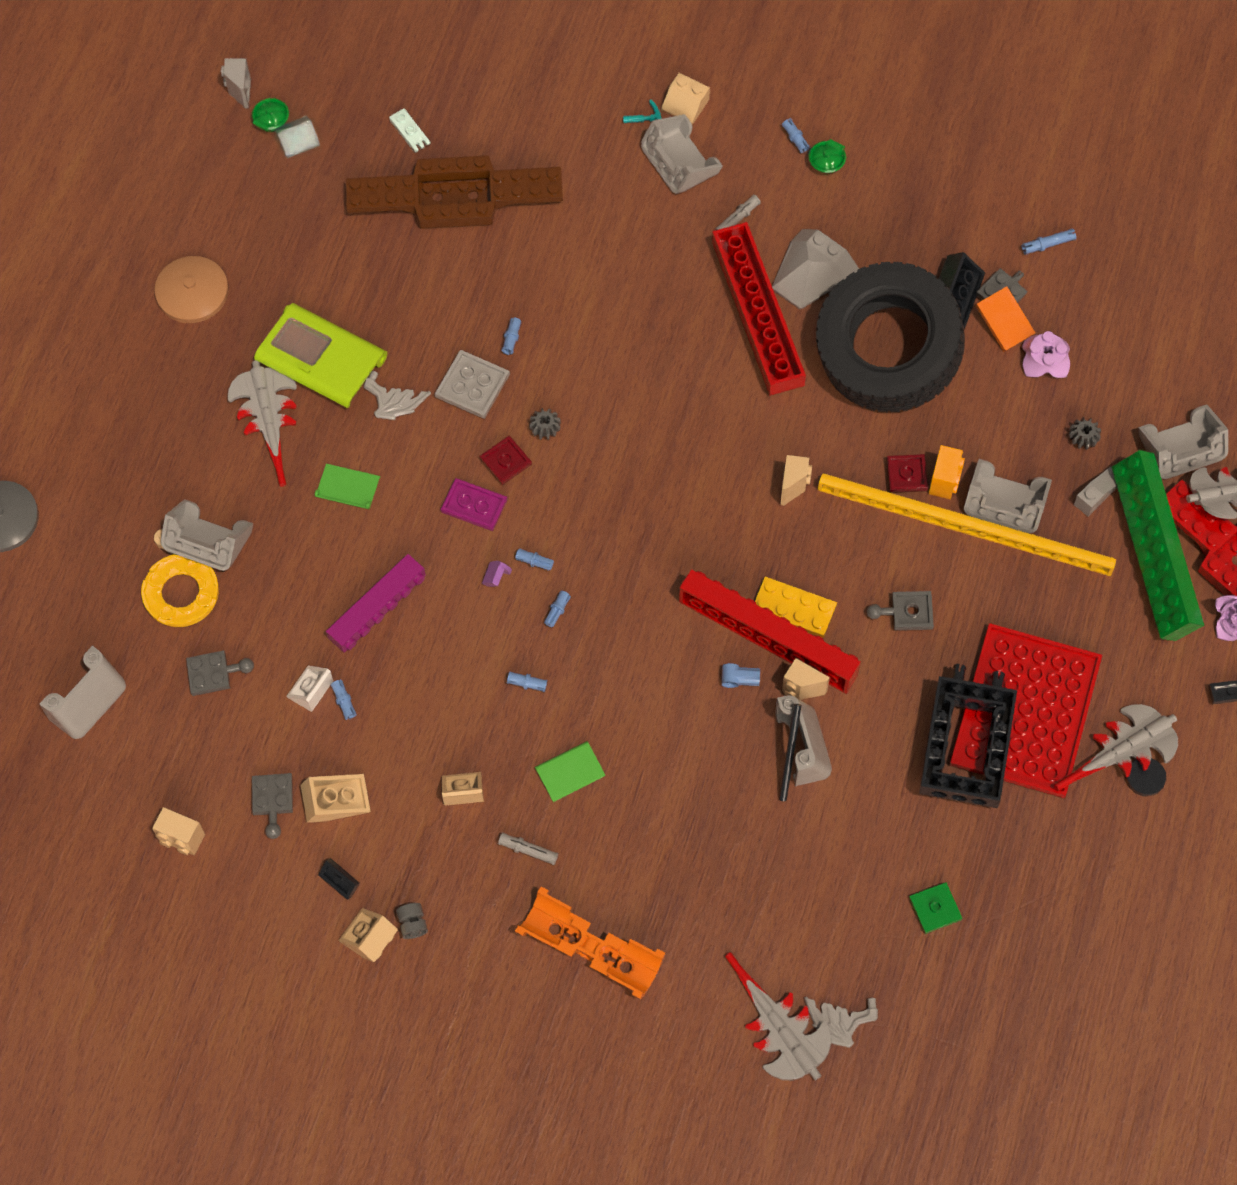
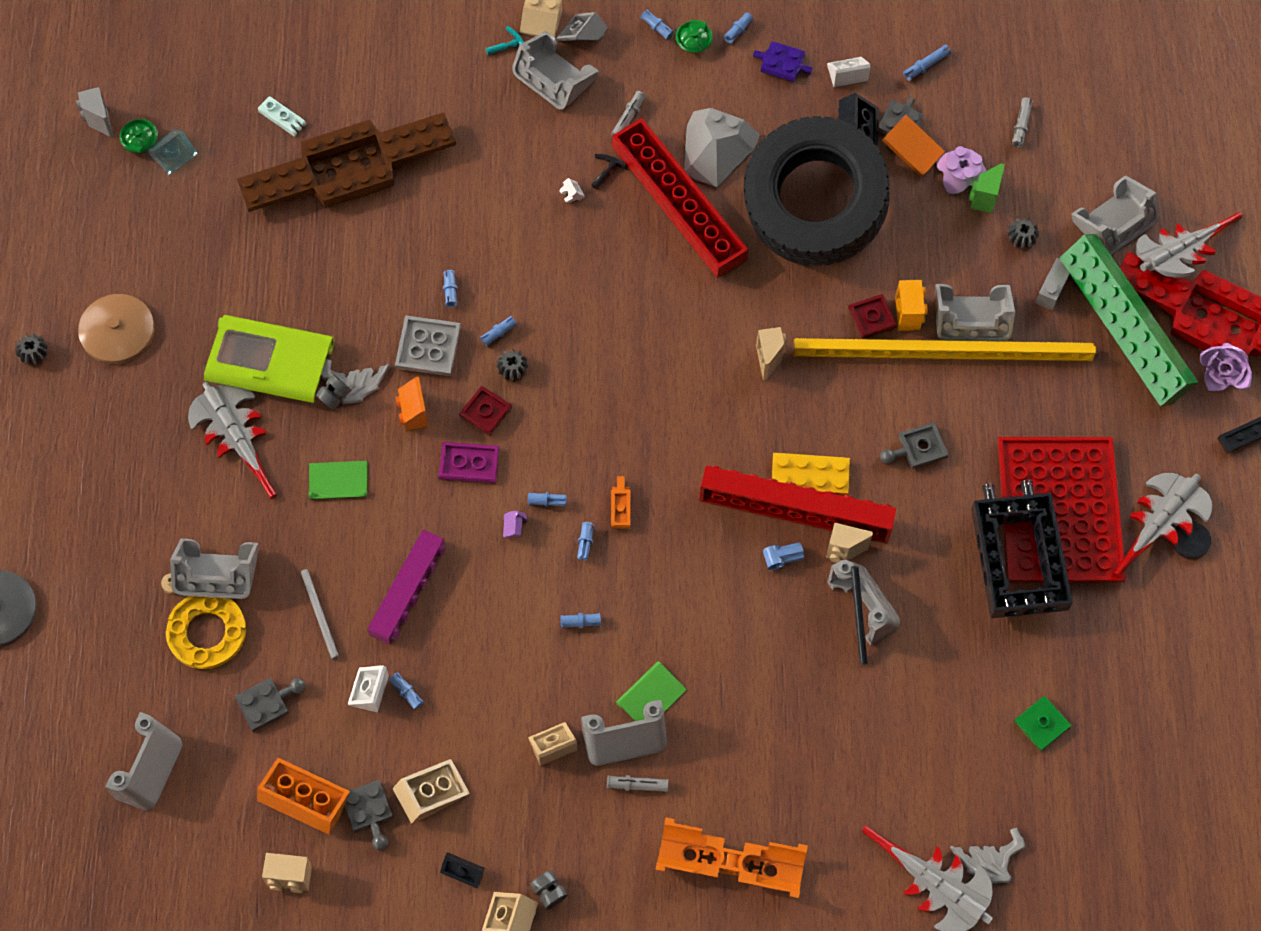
camera: 20 degrees left, 0 degrees up
(108, 287) = (31, 349): none -> dark grey gear
(216, 766) = (302, 795): none -> orange slope
(288, 605) = (319, 614): none -> light grey piece
(368, 403) = (333, 392): none -> dark grey wheel
(438, 436) = (412, 405): none -> orange slope
(531, 804) = (627, 739): none -> light grey windscreen
(543, 388) = (498, 331): none -> medium blue pin
(602, 584) = (620, 505): none -> orange hinge
(660, 274) = (574, 190): none -> white tile
(709, 258) = (614, 162): none -> black piece
(723, 120) = (583, 28): none -> light grey slope
(874, 159) = (738, 28): none -> medium blue pin
(906, 203) = (782, 61): none -> dark purple plate
(968, 230) = (849, 71): none -> white slope
(1062, 380) = (986, 189): none -> bright green slope
(1120, 329) = (1020, 128): none -> light grey pin

